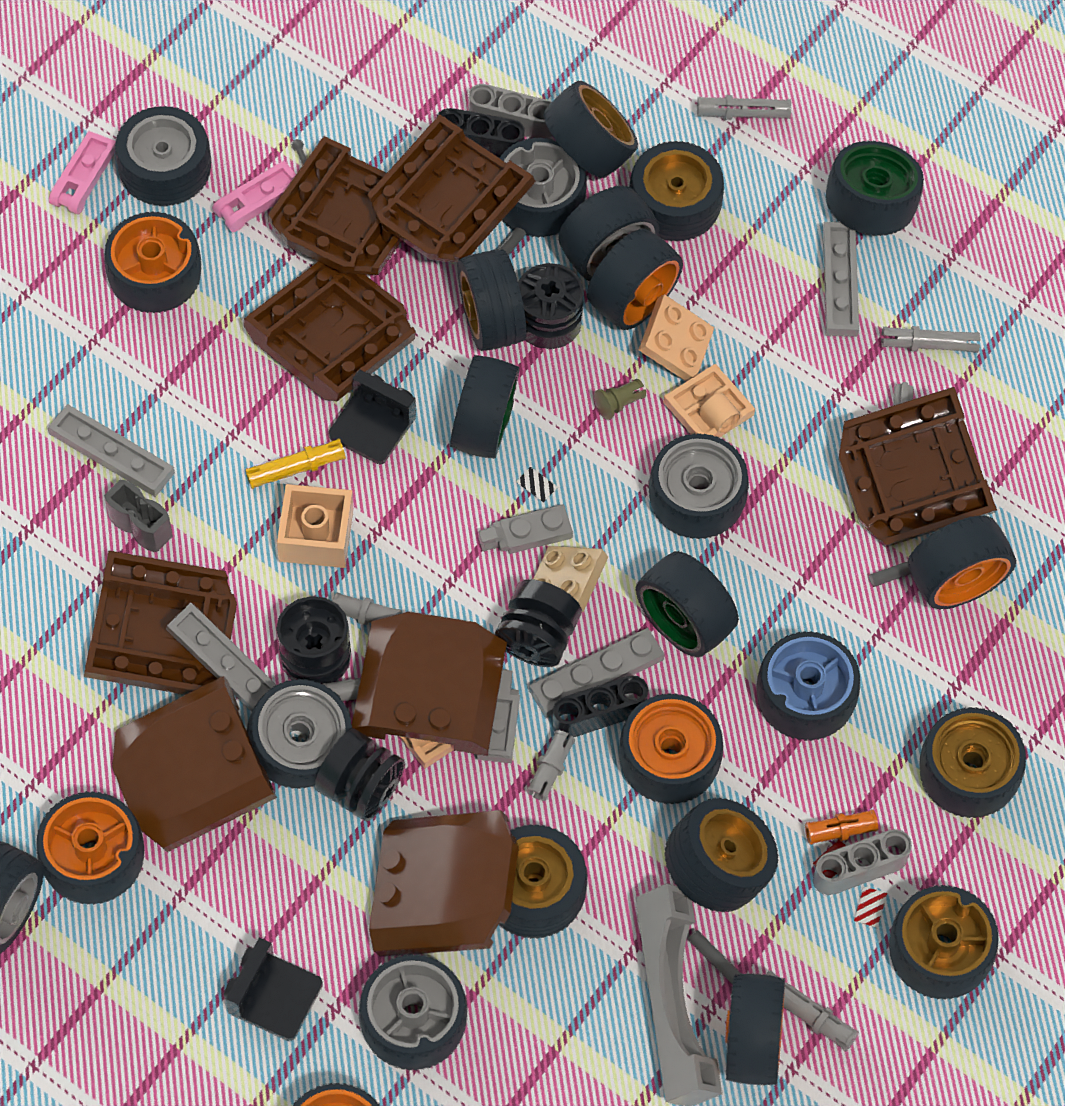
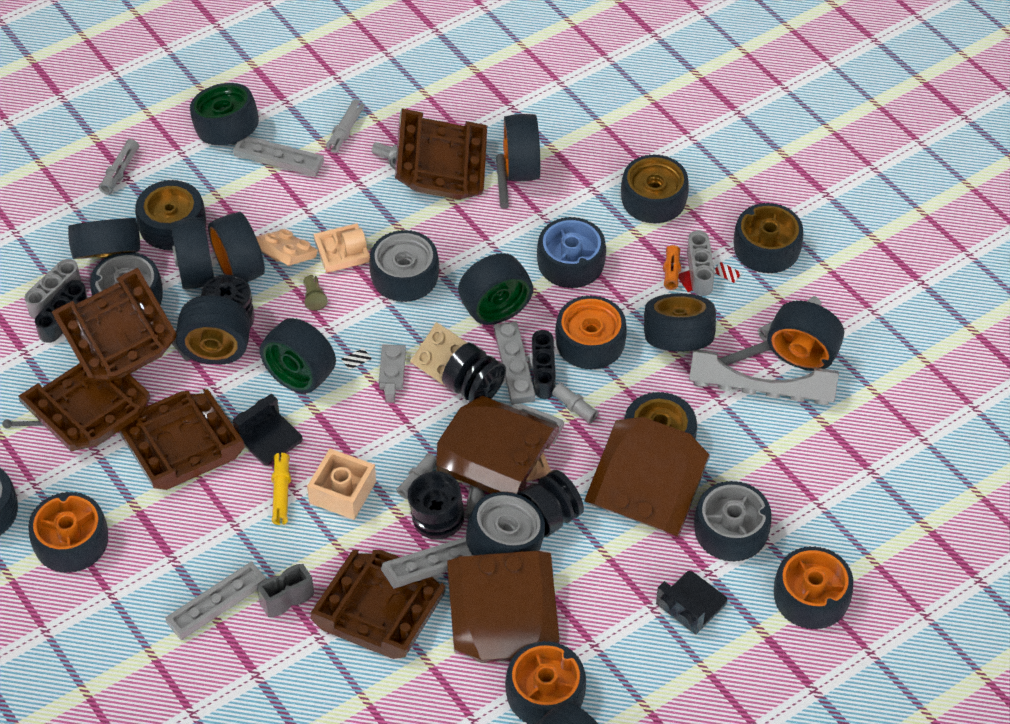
camera: 70 degrees left, 10 degrees down
(254, 196) = (40, 456): bright pink plate -> none

